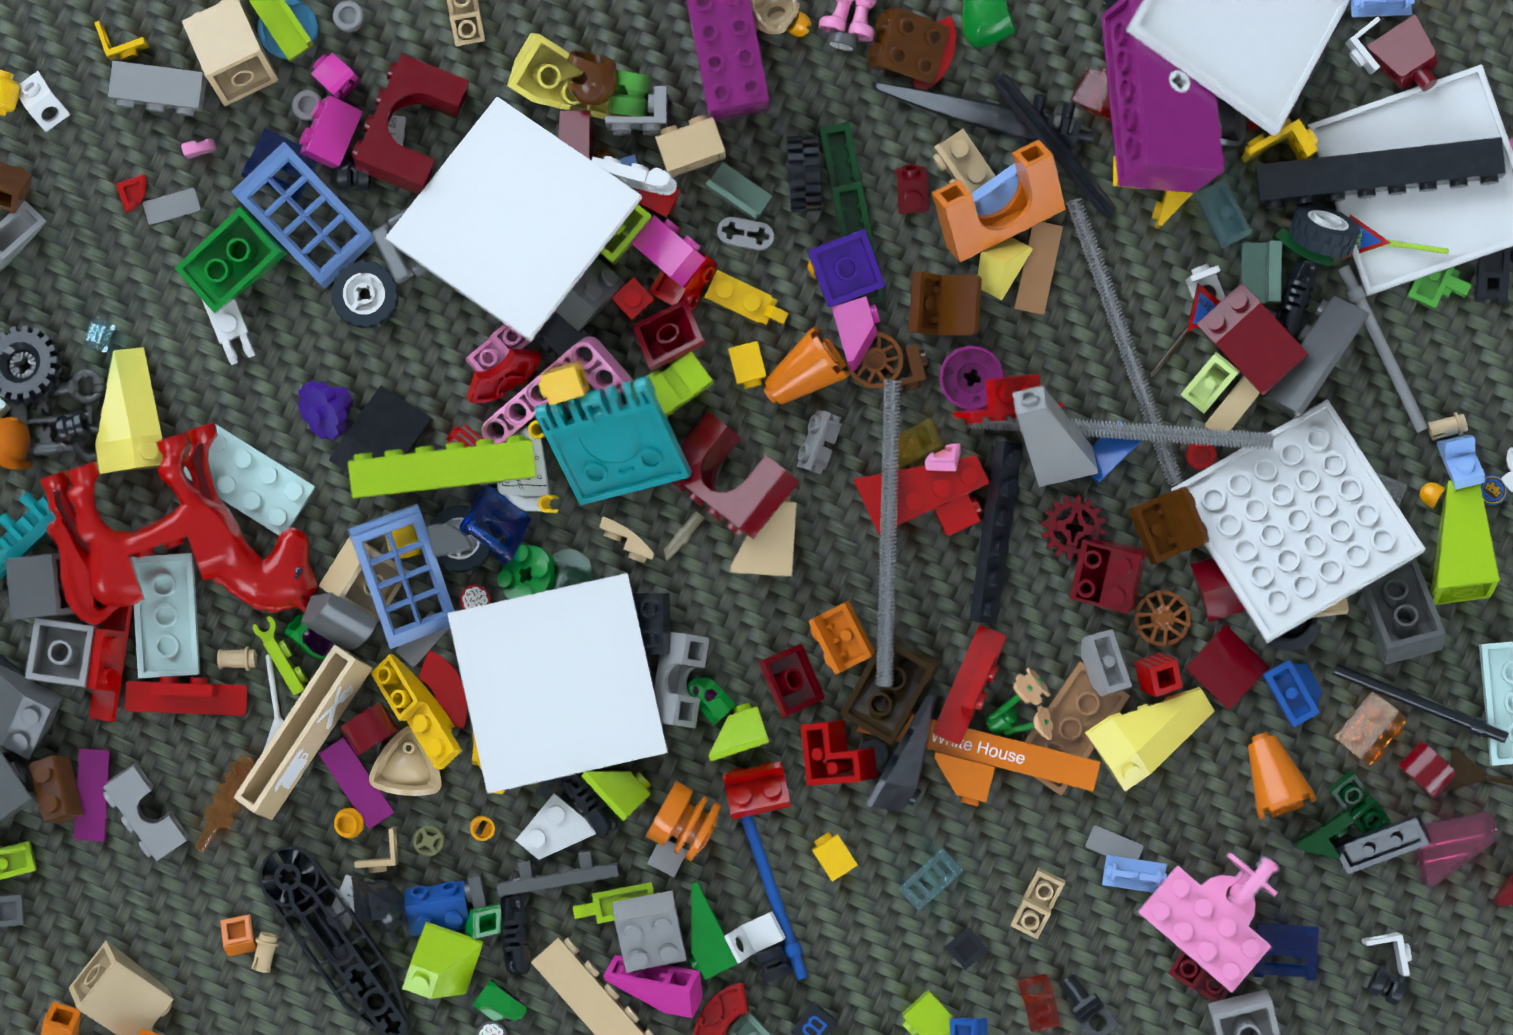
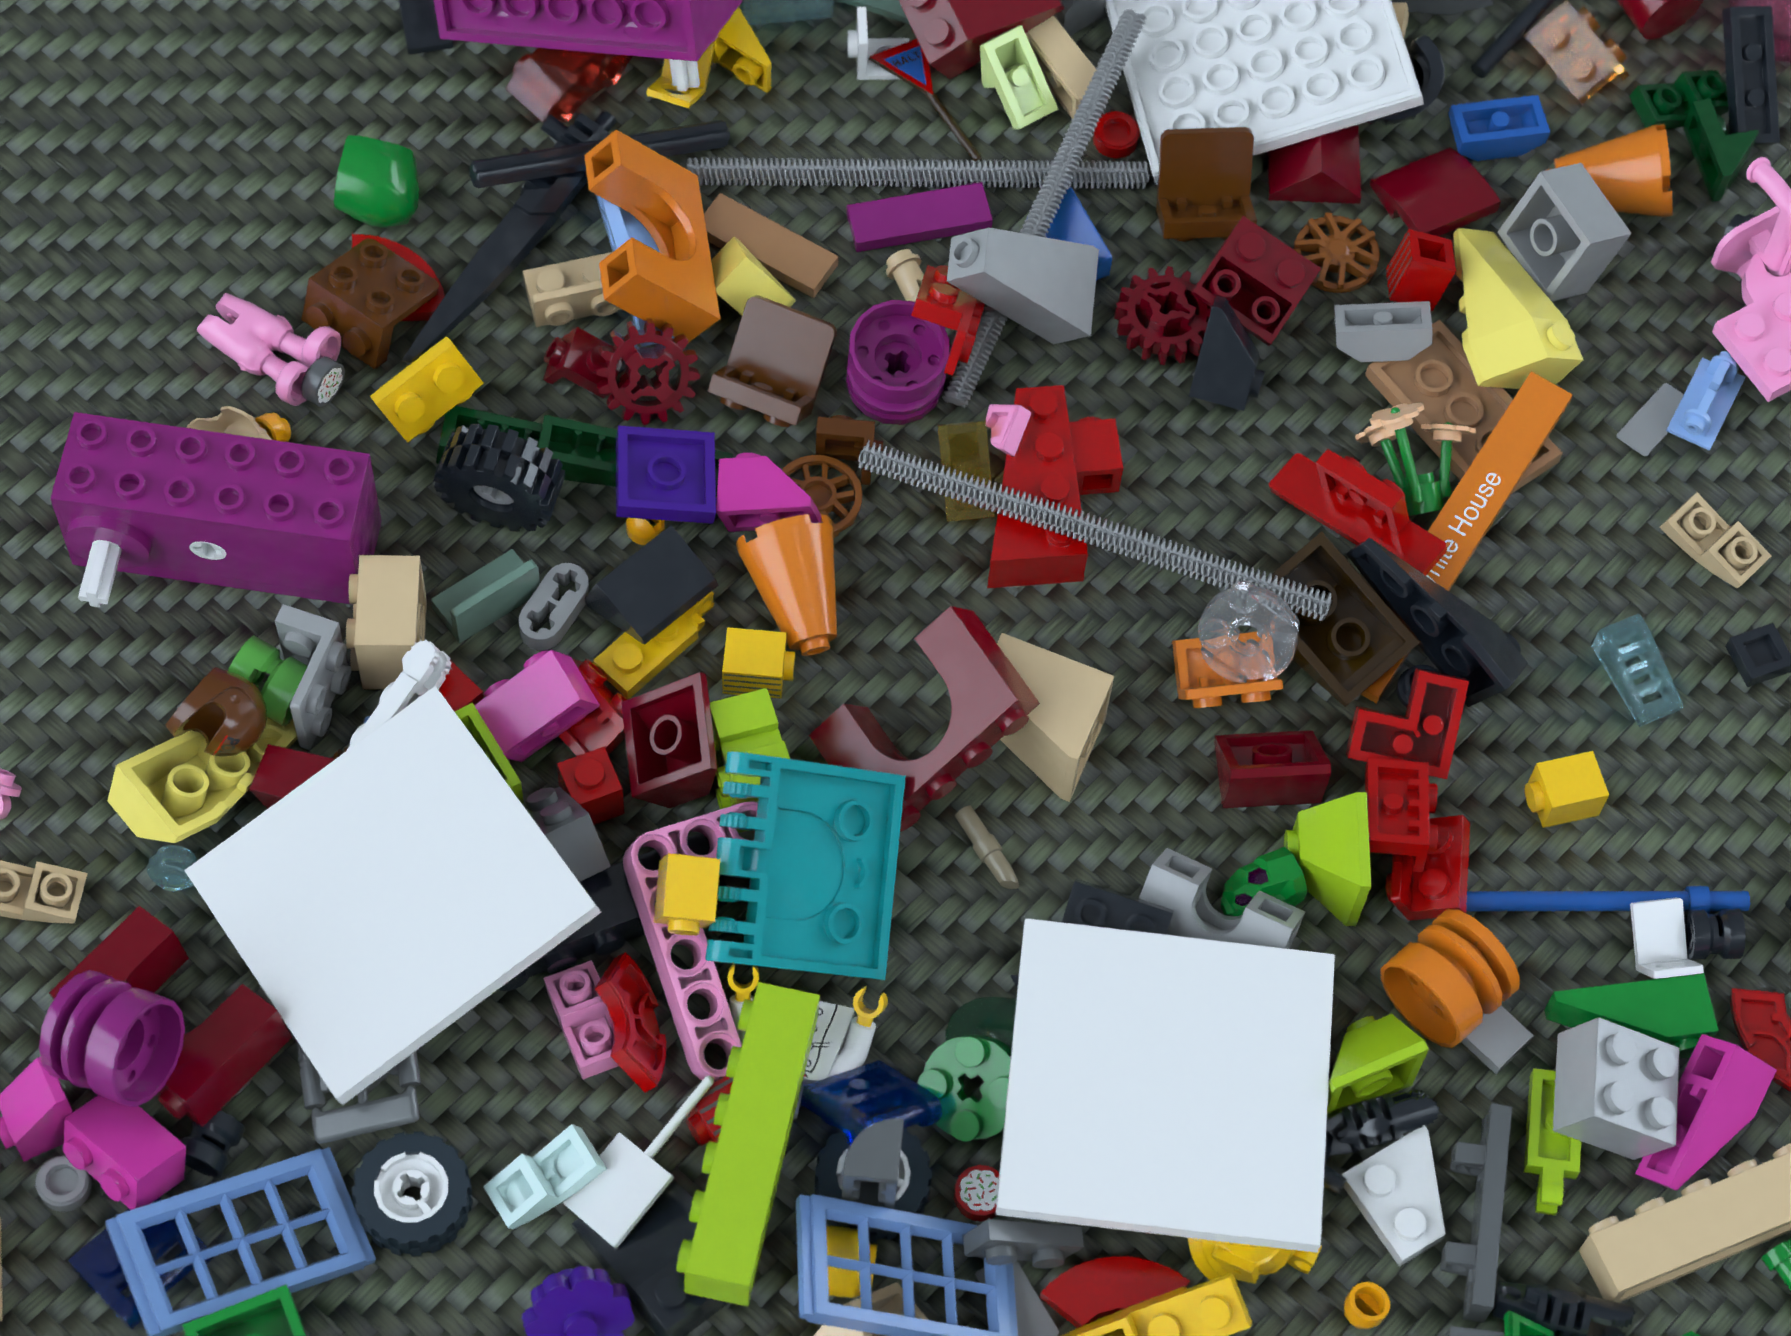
camera: 75 degrees left, 25 degrees down
(368, 107) = (111, 1038): none -> magenta wheel
(399, 361) = (543, 1181): none -> light aqua slope
(406, 405) = (631, 1182): none -> white piece
(440, 622) = (1009, 1241): none -> dark grey plate
(500, 87) = (168, 867): none -> clear light blue plate
(635, 545) = (972, 917): tan slope -> none
(770, 287) = (652, 587): none -> black slope
(773, 762) = (1400, 809): none -> red bracket
(821, 428) = (900, 601): light grey hinge -> none
(852, 104) = (427, 389): none -> yellow bracket
(856, 657) = (1254, 607): none -> clear plate
(912, 231) = (634, 385): none -> dark red gear
(966, 777) = (1499, 567): orange slope -> none
(996, 532) = (1156, 420): black plate -> none
(1045, 362) = (906, 271): none -> tan pin
(1046, 575) = (1226, 361): none -> black slope
(1093, 353) = (919, 217): none -> magenta tile
(1213, 756) = (1564, 231): none -> light grey brick

